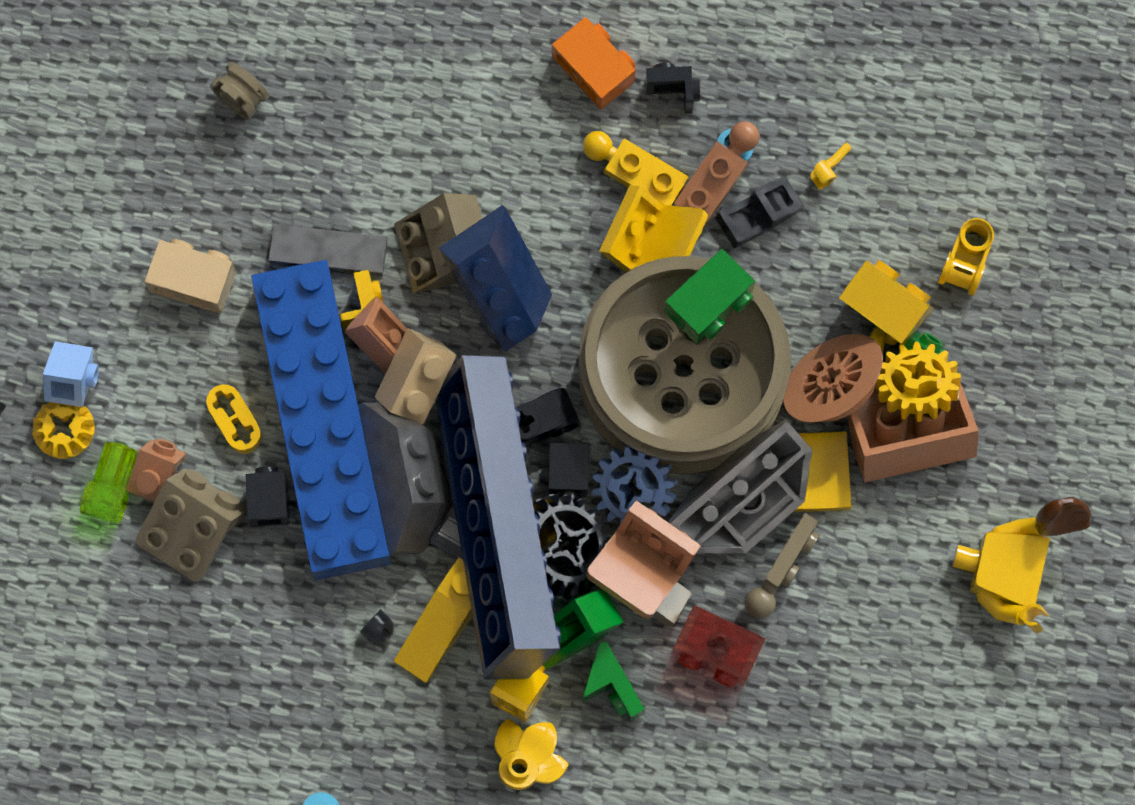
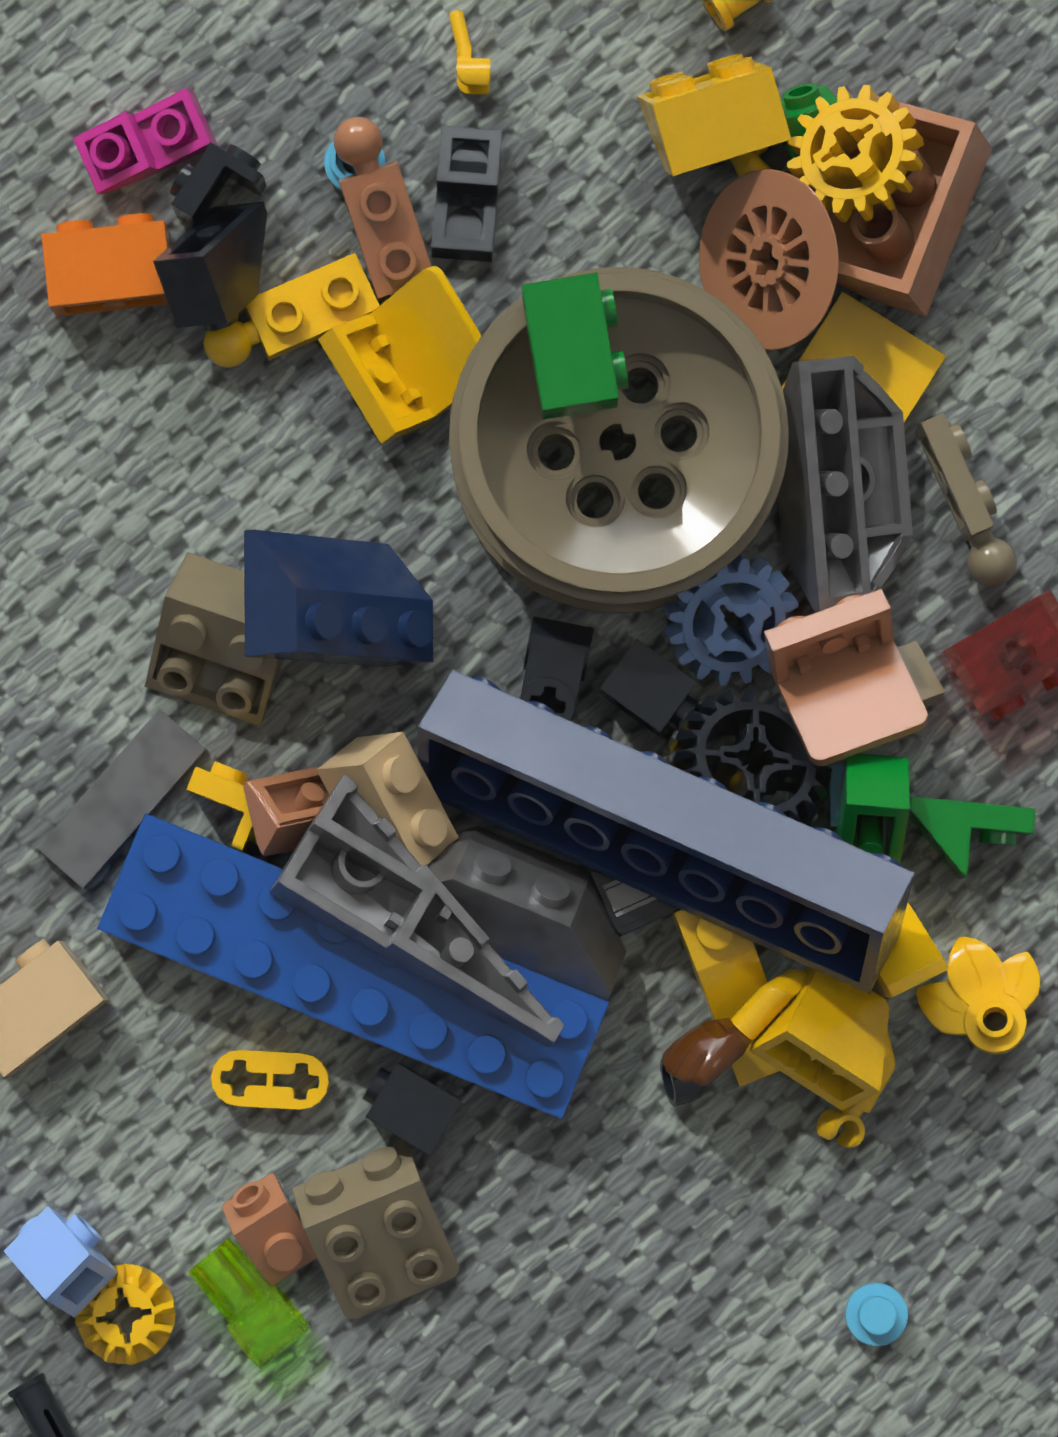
camera: 55 degrees left, 10 degrees up
(363, 393) = (374, 891): none -> flat silver wedge
(446, 672) = (811, 1031): none -> yellow torso
(629, 110) = (214, 266): none -> black slope
(669, 39) = (144, 142): none -> dark pink slope

